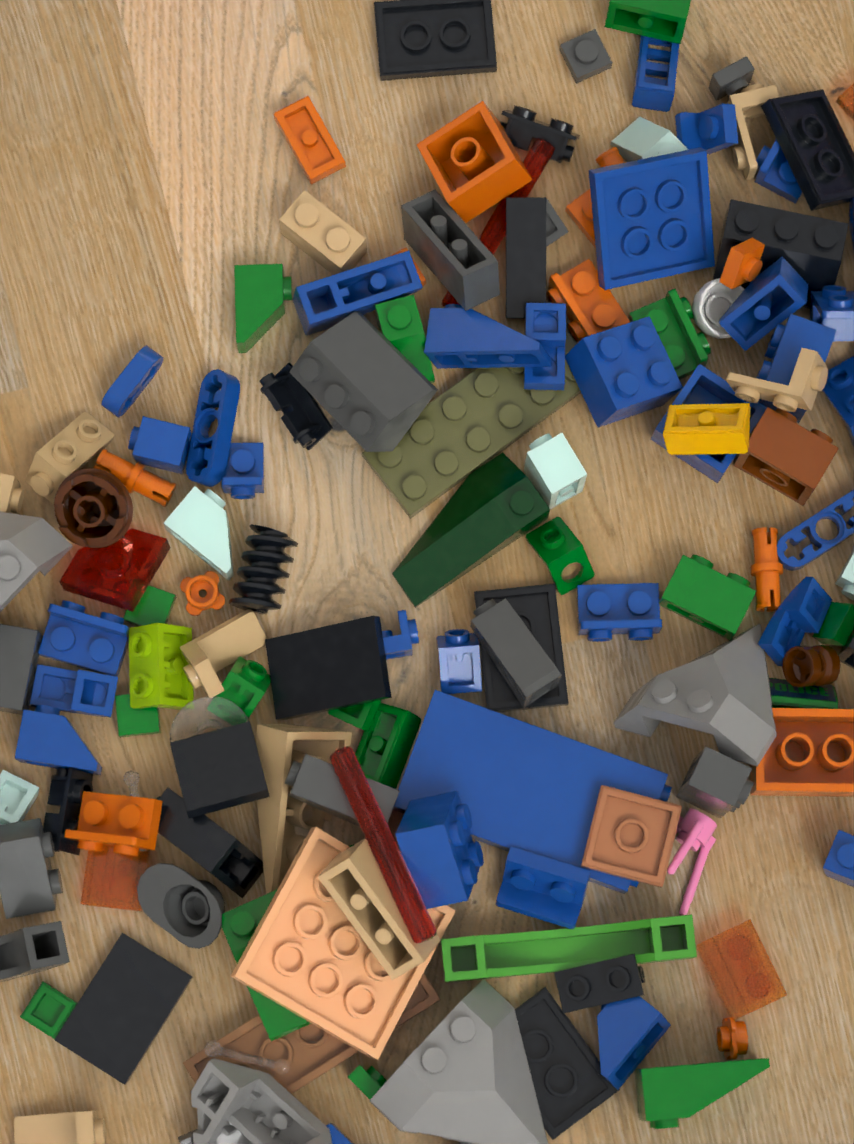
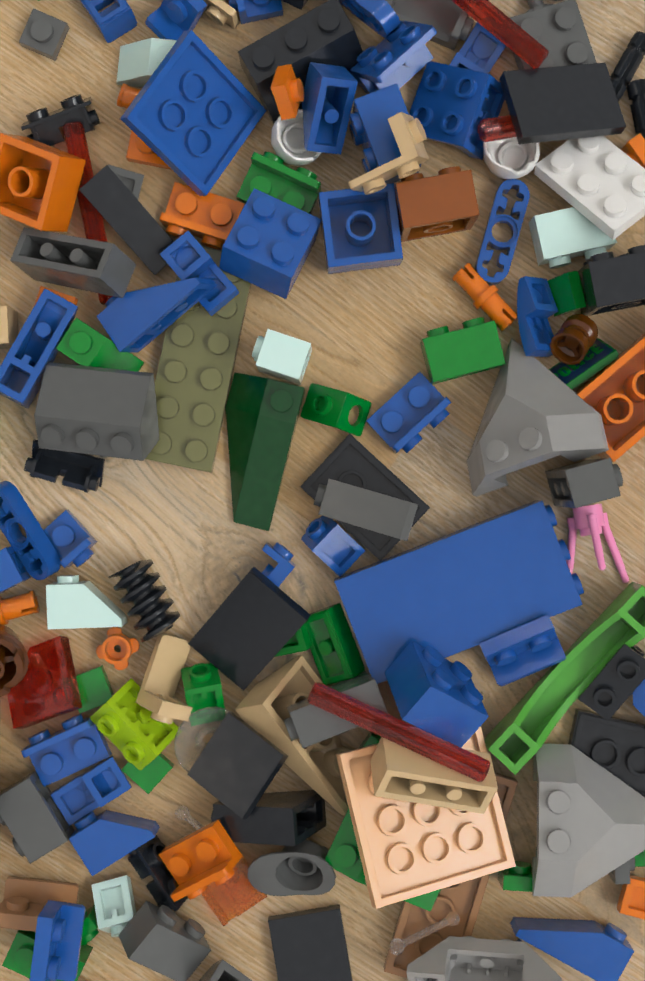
camera: 40 degrees left, 10 degrees up
(631, 836) = (555, 566): nougat tile -> none
(707, 429) = (367, 235): yellow slope -> none

